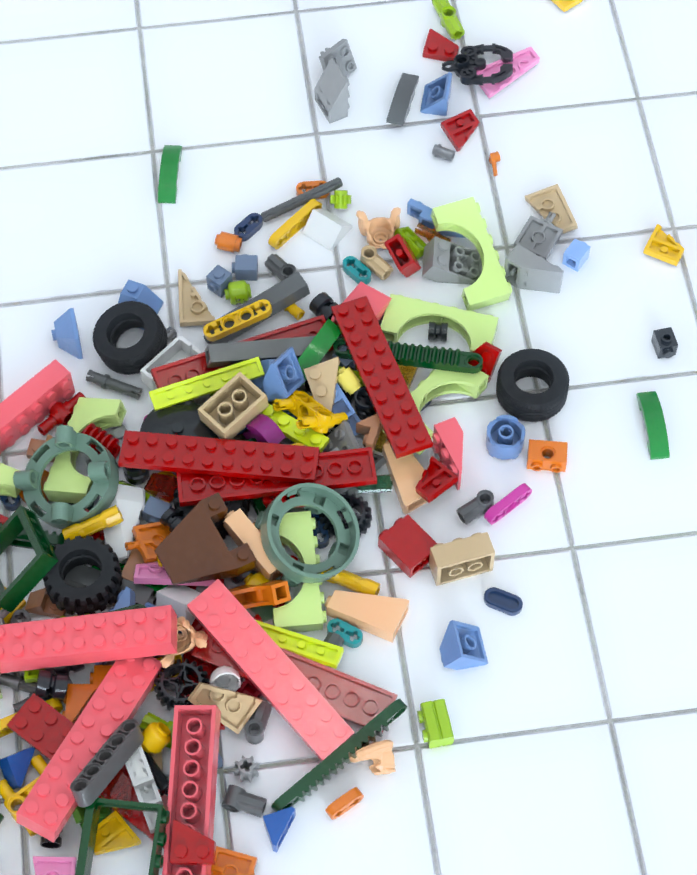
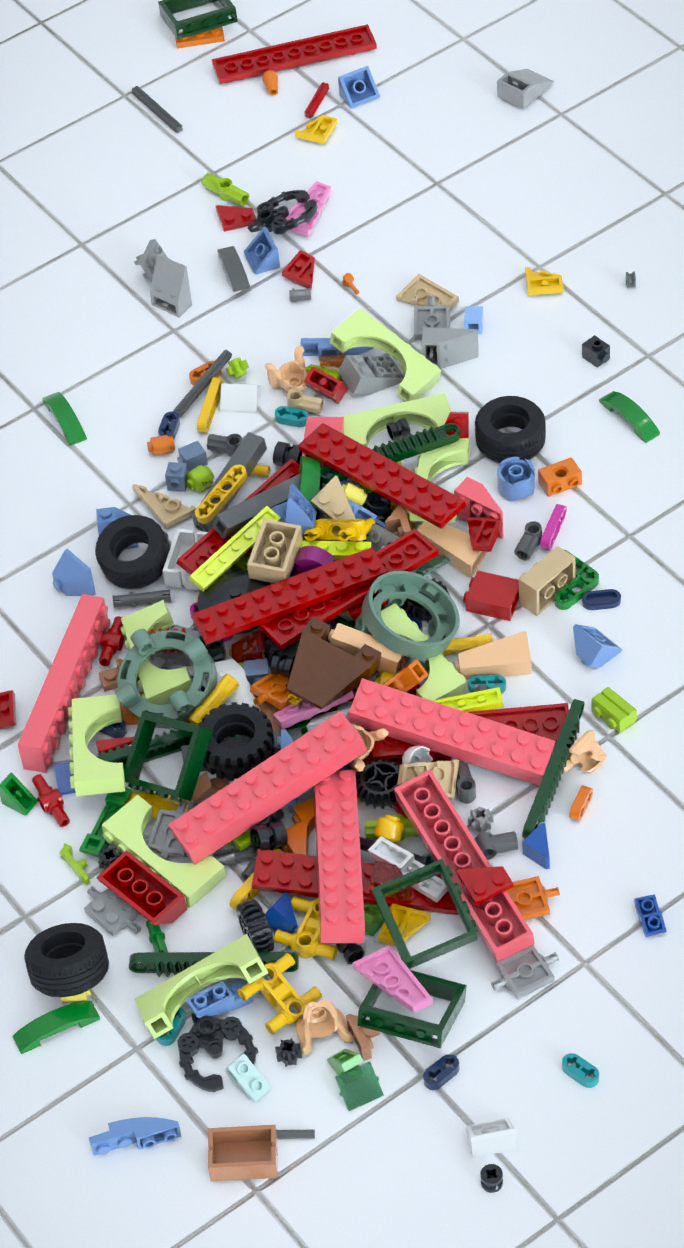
camera: 25 degrees left, 10 degrees down
(107, 763) = (369, 857): dark grey beam -> none
(495, 572) = (580, 581): none -> green beam

